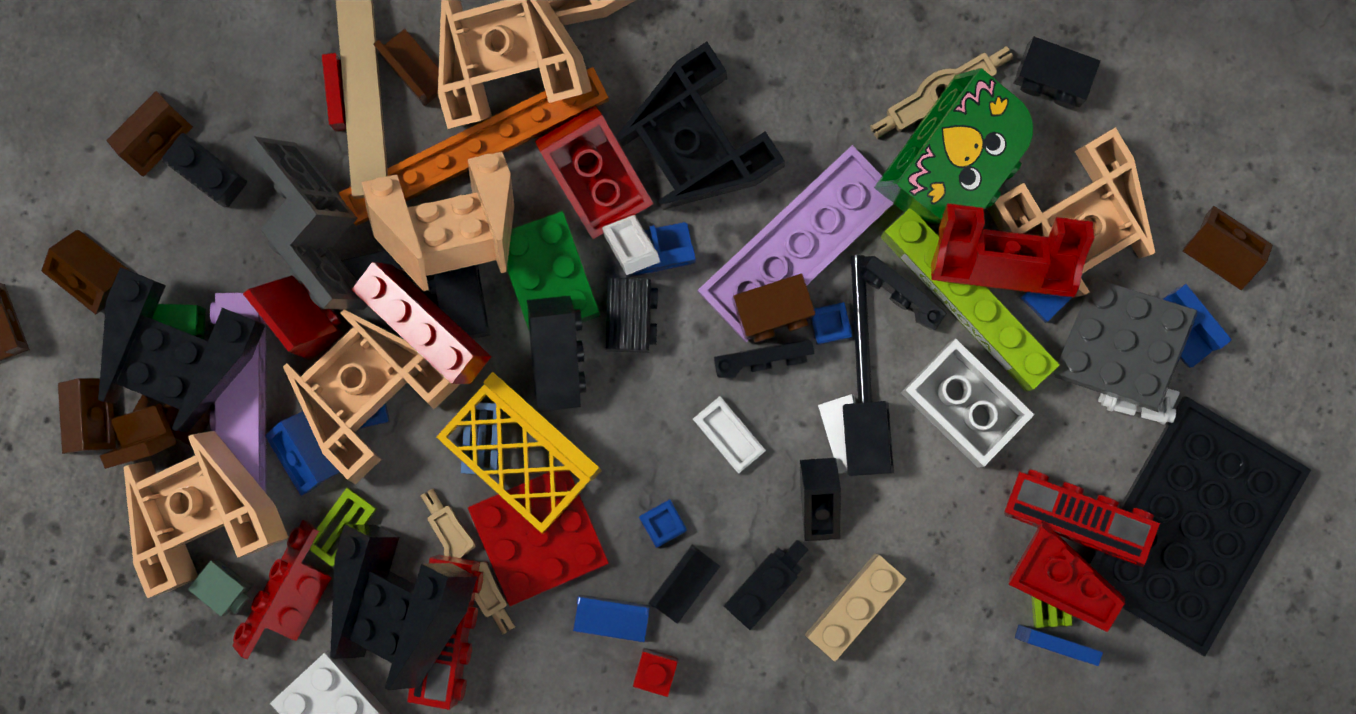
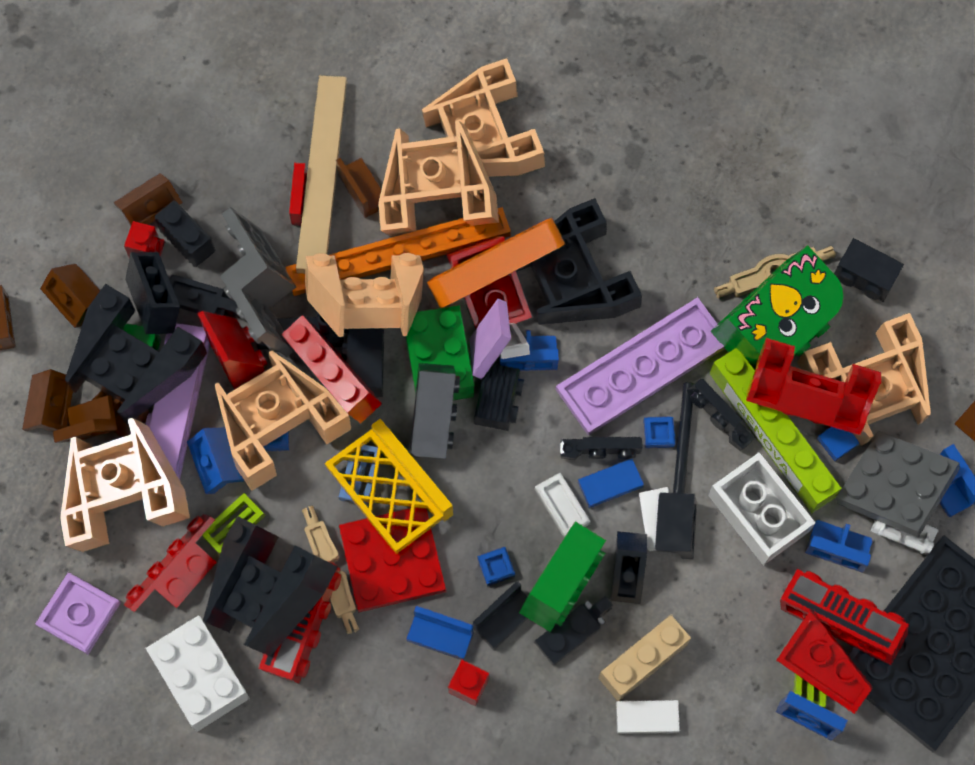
camera: 10 degrees right, 15 degrees down
(157, 192) = (143, 239): none -> red brick
(181, 261) = (152, 293): none -> black brick
(181, 666) = (78, 613): none -> lavender tile
(221, 588) = (125, 554): sand green brick -> none
(236, 250) = (202, 297): none -> black hinge
(598, 151) = (495, 262): none -> orange beam
(607, 248) = (490, 338): none -> lavender tile
(747, 532) = (564, 577): none -> green brick
(774, 307) = (615, 406): reddish brown brick -> none
(782, 397) = (610, 483): none -> blue tile
(868, 672) = (647, 717): none -> white tile
(1064, 427) = (839, 546): none -> blue panel

